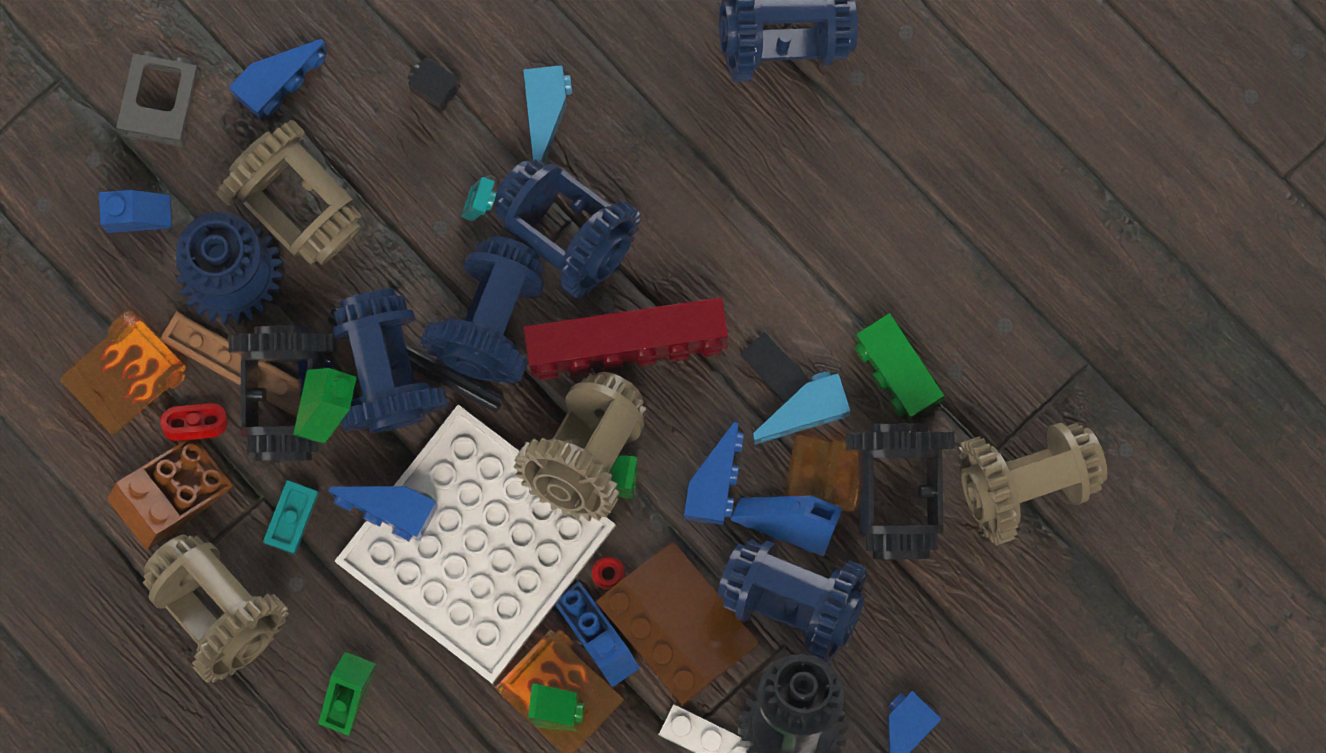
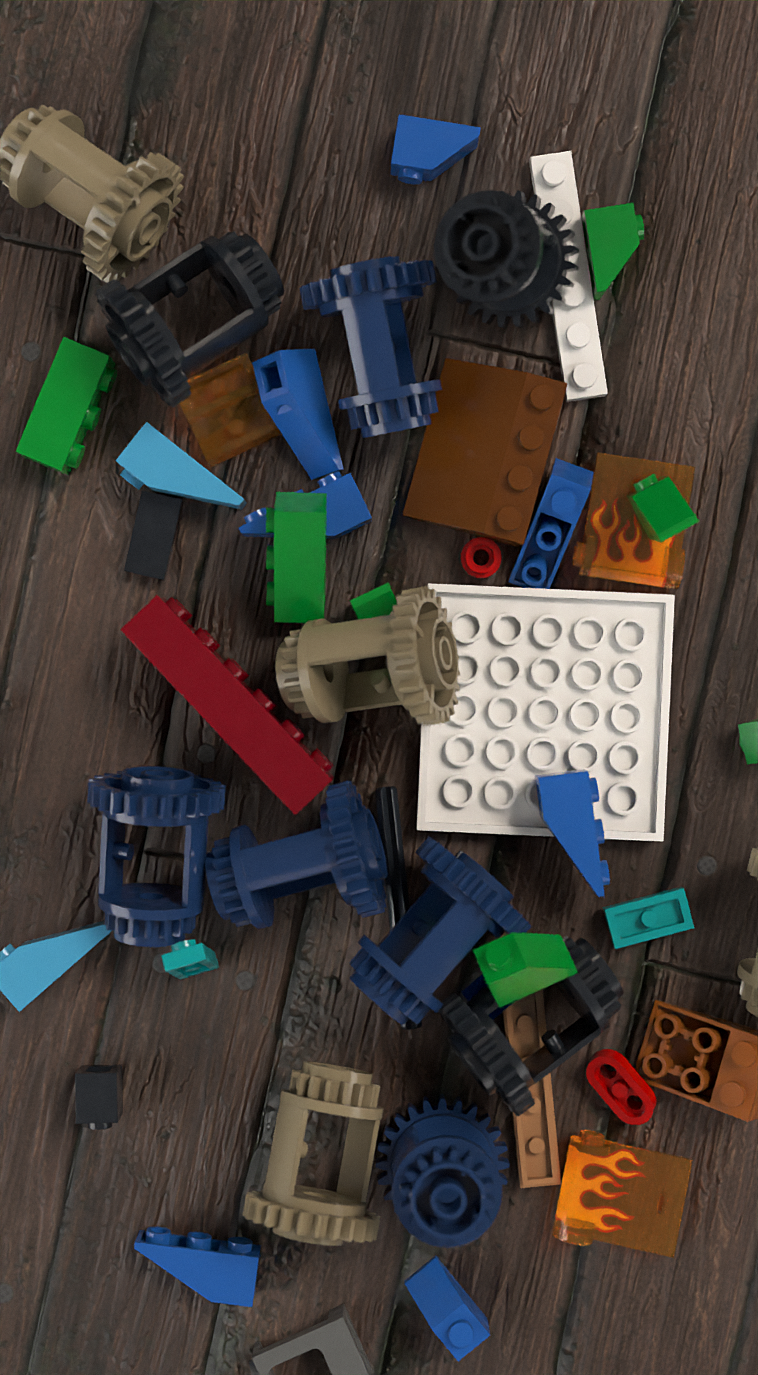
camera: 125 degrees left, 10 degrees up
(691, 447) = (297, 556): none -> green brick

